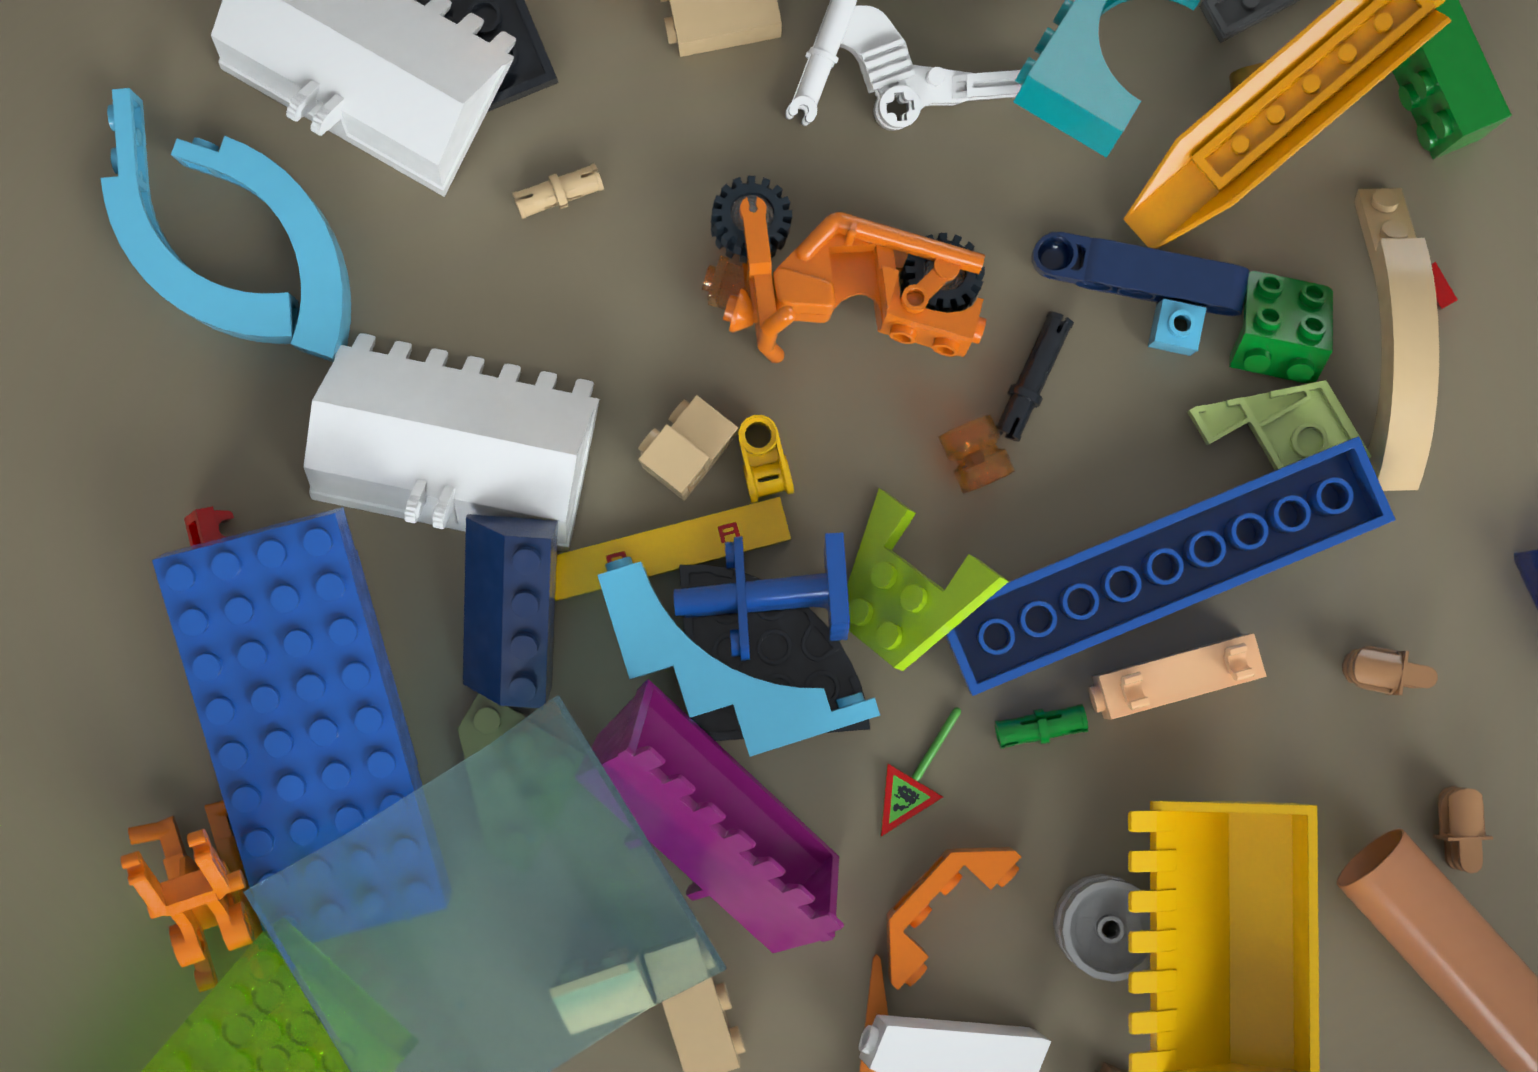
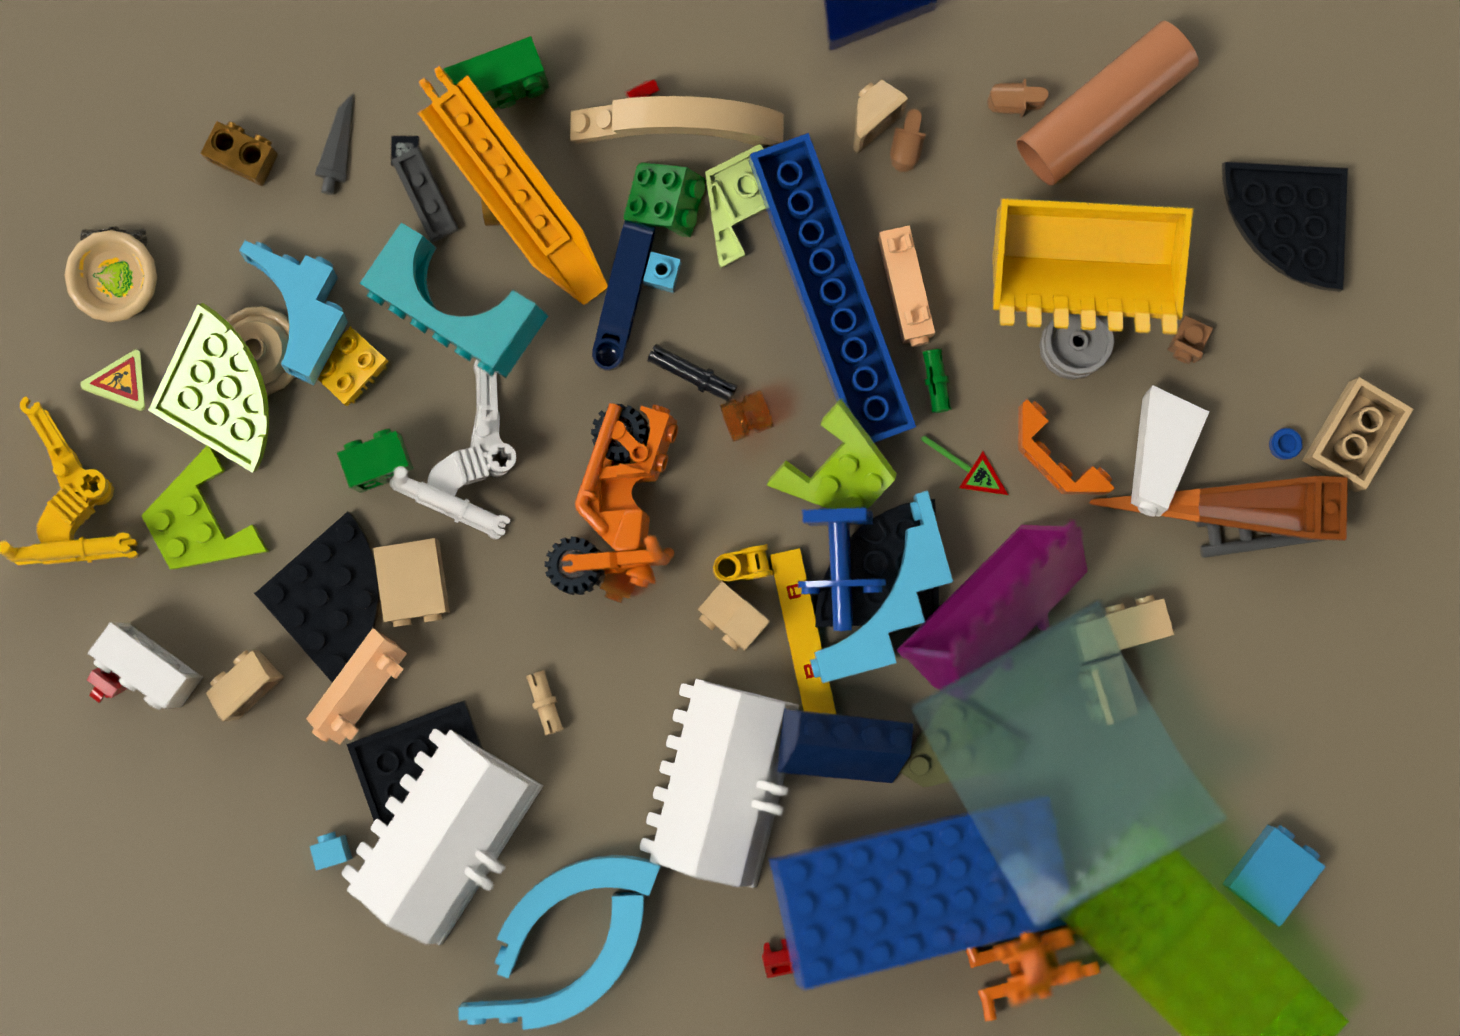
camera: 75 degrees left, 0 degrees up
(1428, 623) = (876, 111): none -> tan slope

